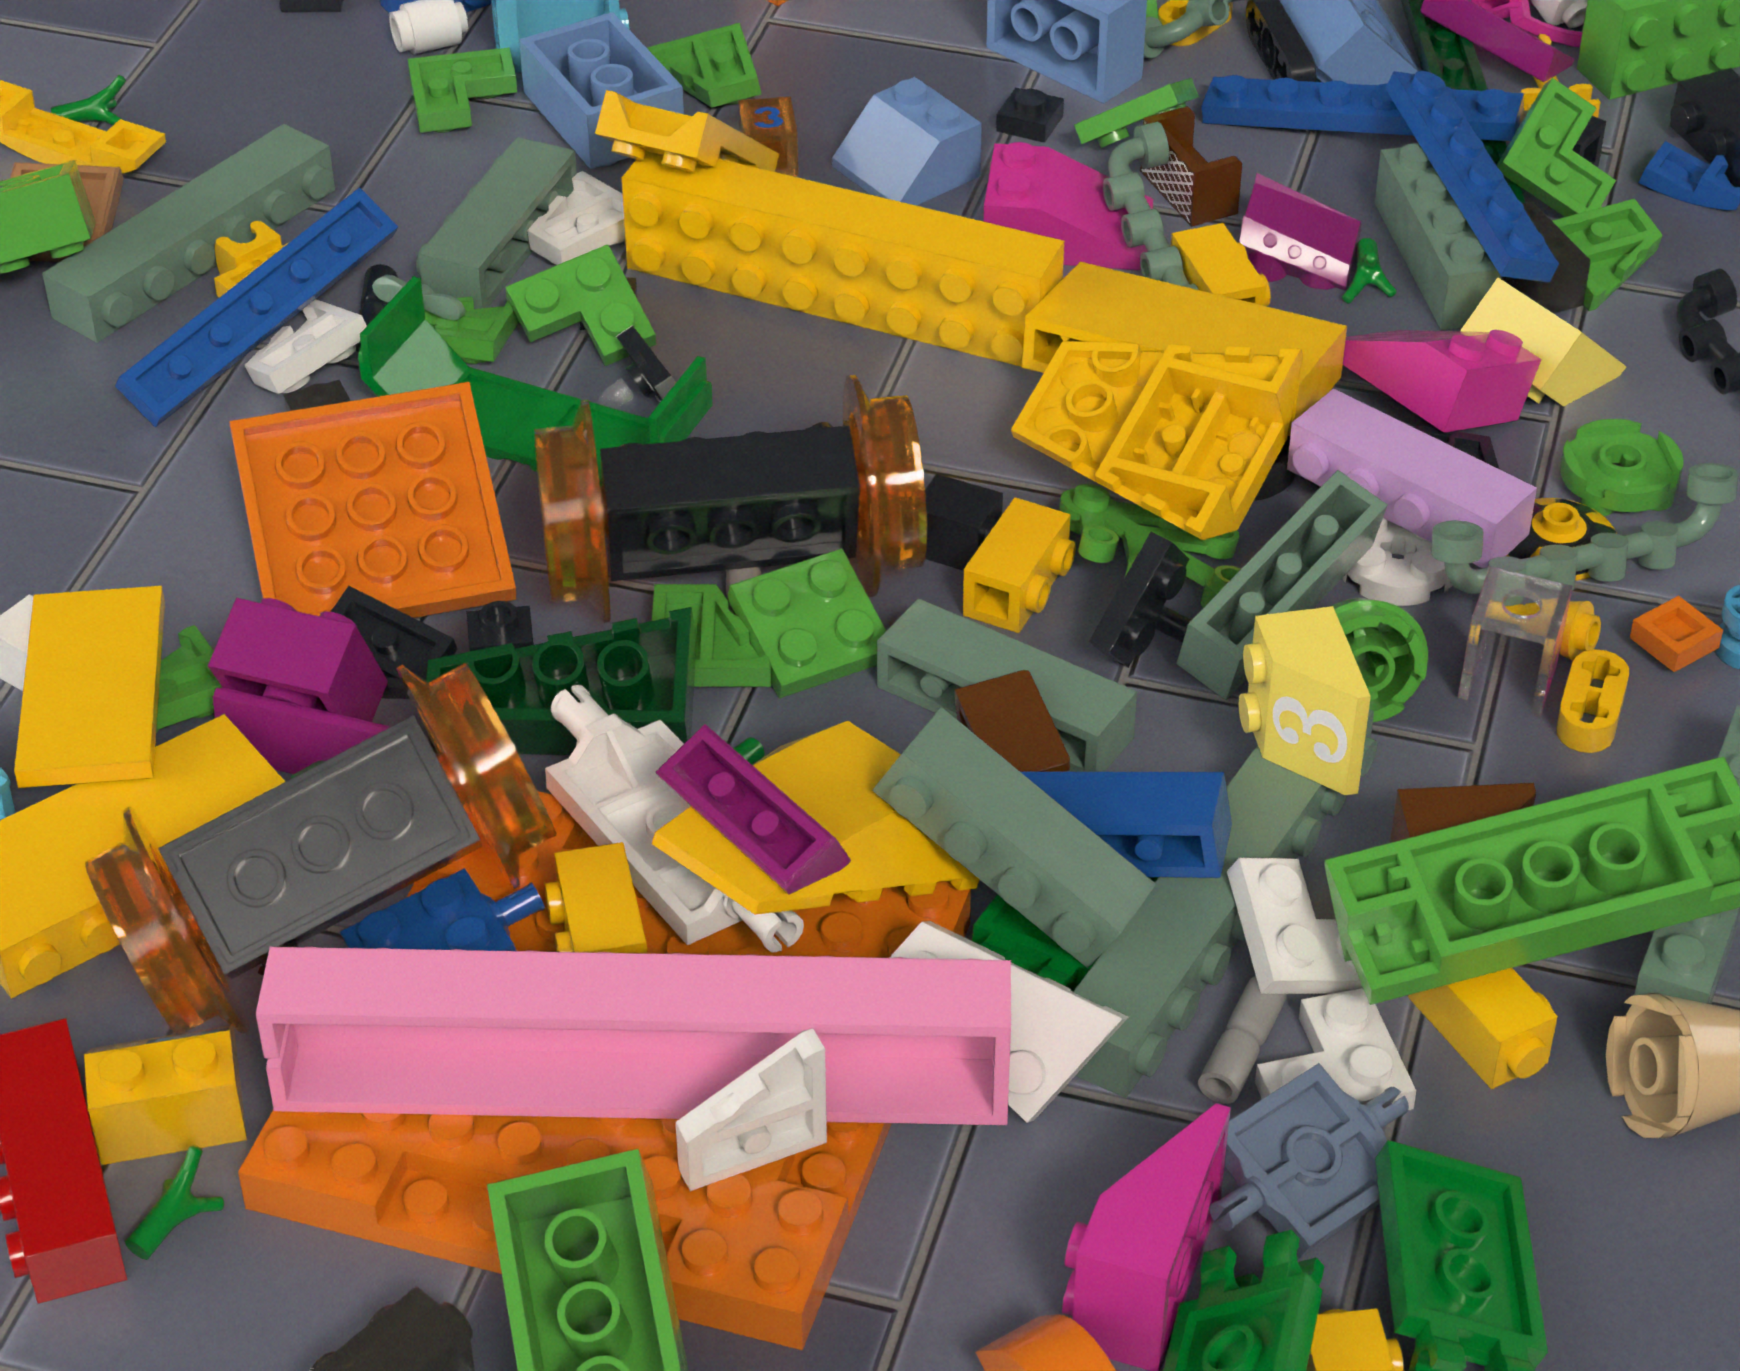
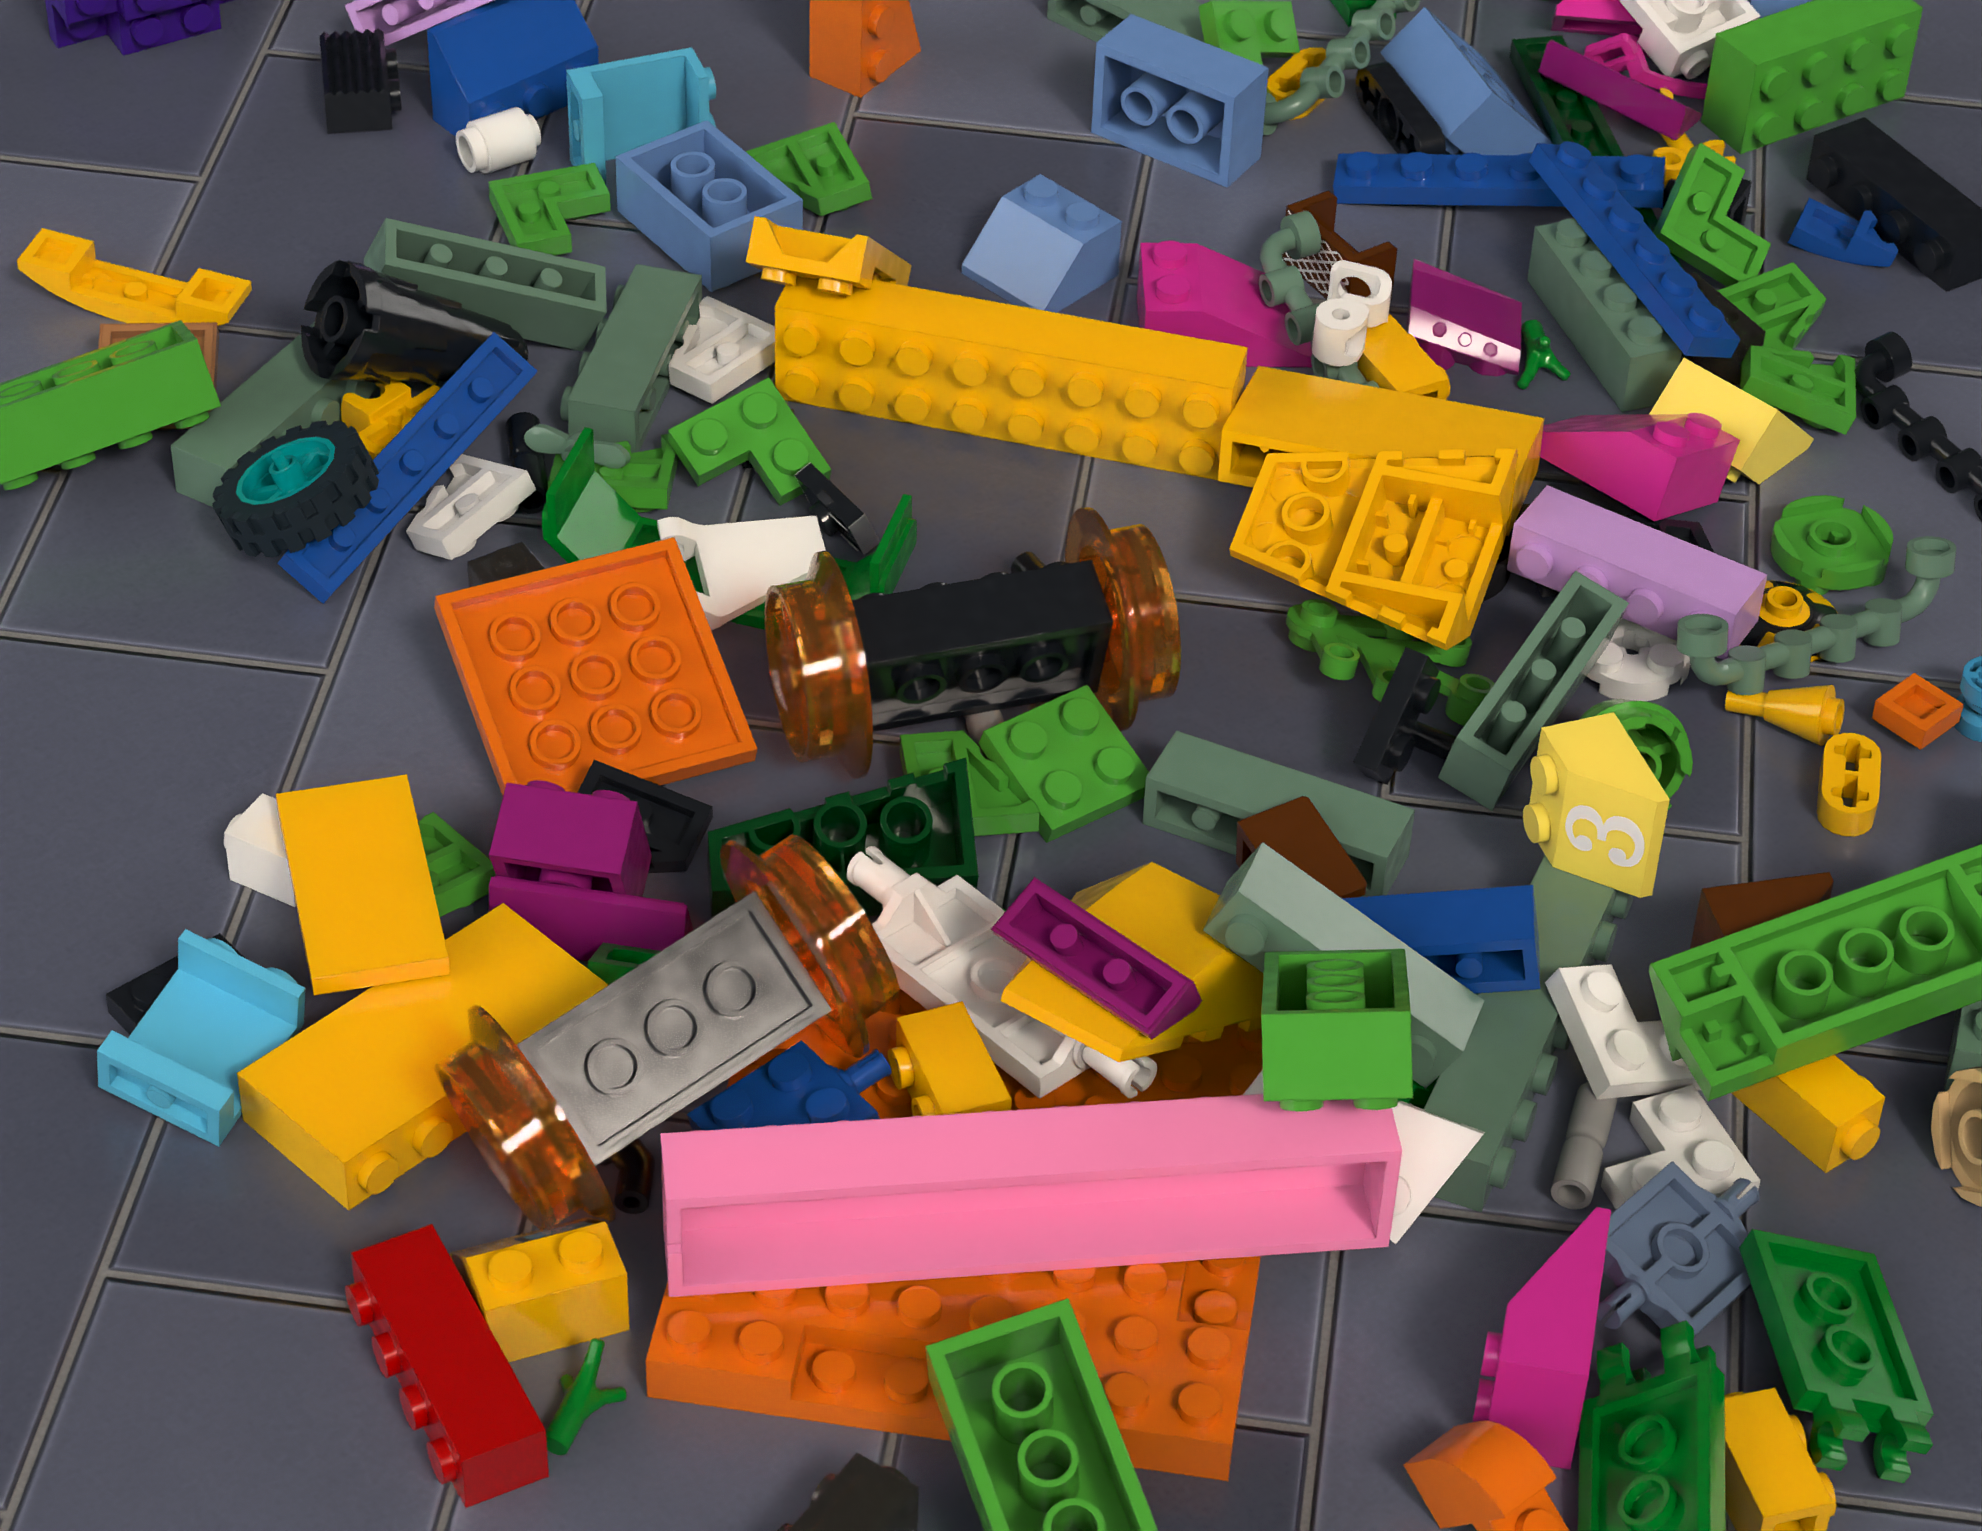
camera: 10 degrees left, 0 degrees up
(94, 107) = (159, 254): green bar -> none
(141, 318) = (295, 488): none -> black wheel
(263, 180) = (390, 330): none -> black cone
(365, 145) = (530, 290): none -> sand green brick
(499, 625) = (760, 793): black window -> none
(544, 403) = (744, 559): none -> white flag
(758, 1116) = (1161, 1258): white wing -> none
(773, 125) = (902, 233): clear orange brick -> none
(958, 519) = (1206, 650): black brick -> none
(965, 897) = (1336, 1028): none -> bright green brick
(1017, 565) = (1260, 688): yellow brick -> none
(1030, 114) = (1156, 205): black plate -> none
(1112, 124) = (1248, 212): bright green plate -> none
(1169, 224) = (1344, 317): none -> white leg
(1542, 627) = (1750, 707): clear piece -> none
(1613, 312) = (1791, 382): none -> bright green wing

